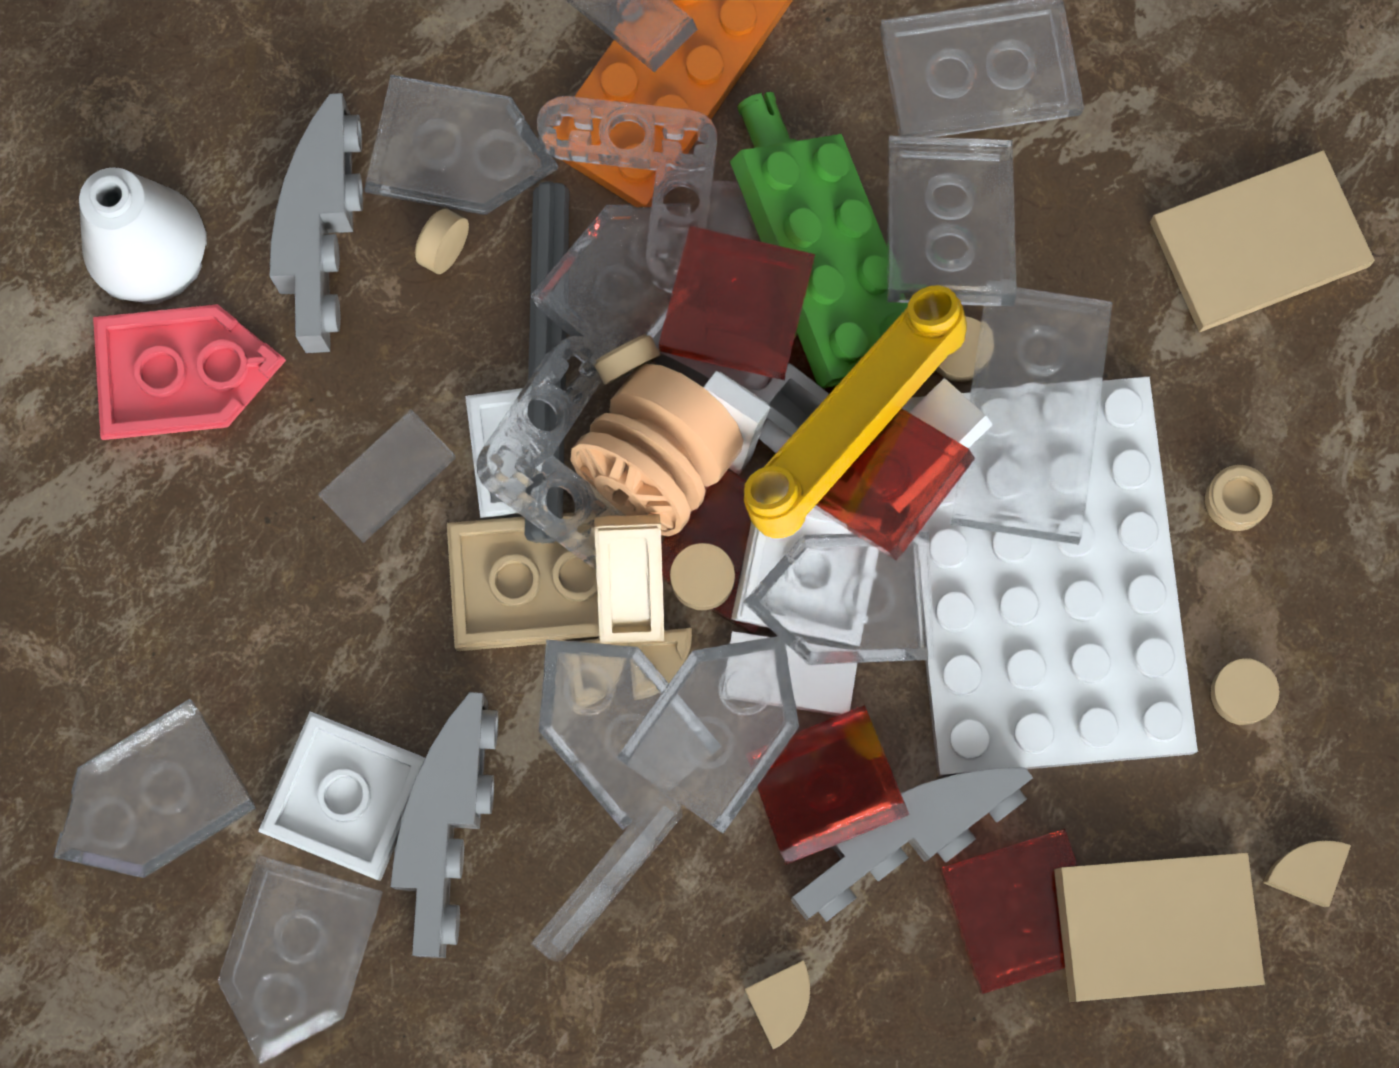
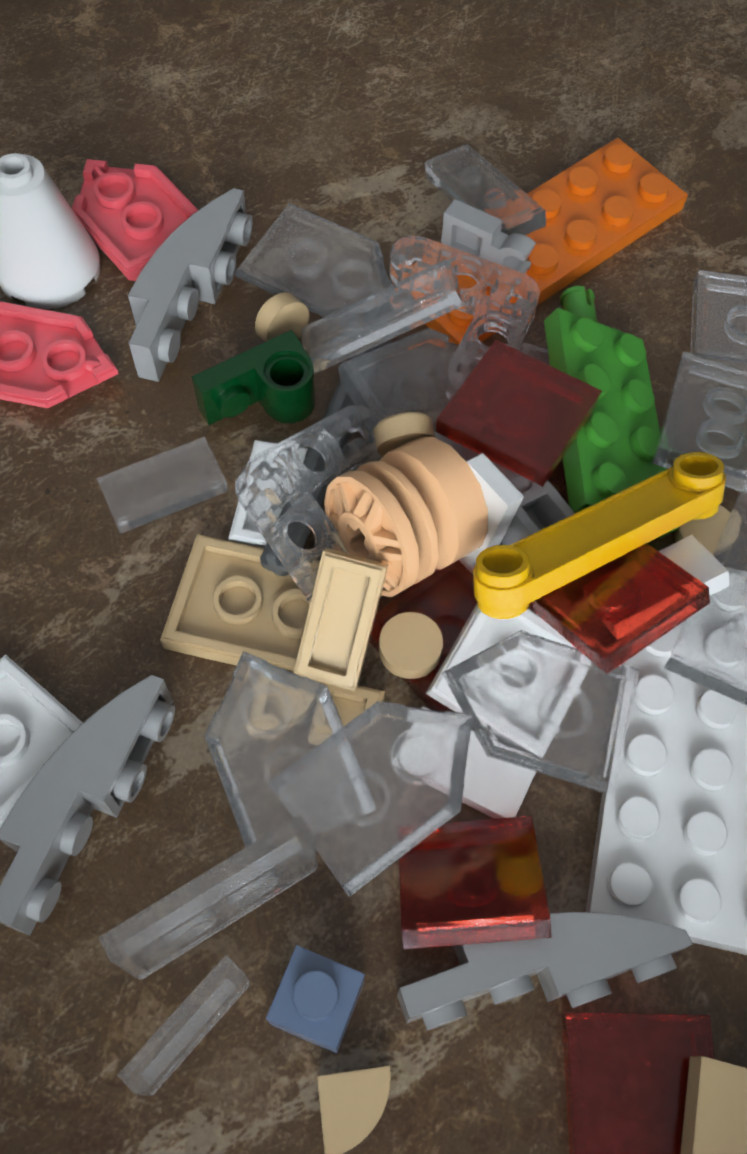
camera: 15 degrees right, 15 degrees down
(216, 145) = (129, 212): none -> coral tile
(440, 320) = (260, 376): none -> dark green plate
(553, 213) = (382, 316): none -> clear tile
(620, 987) = (185, 1028): none -> clear tile
(629, 78) = (481, 236): none -> light grey plate
(724, 928) = (316, 999): none -> sand blue brick

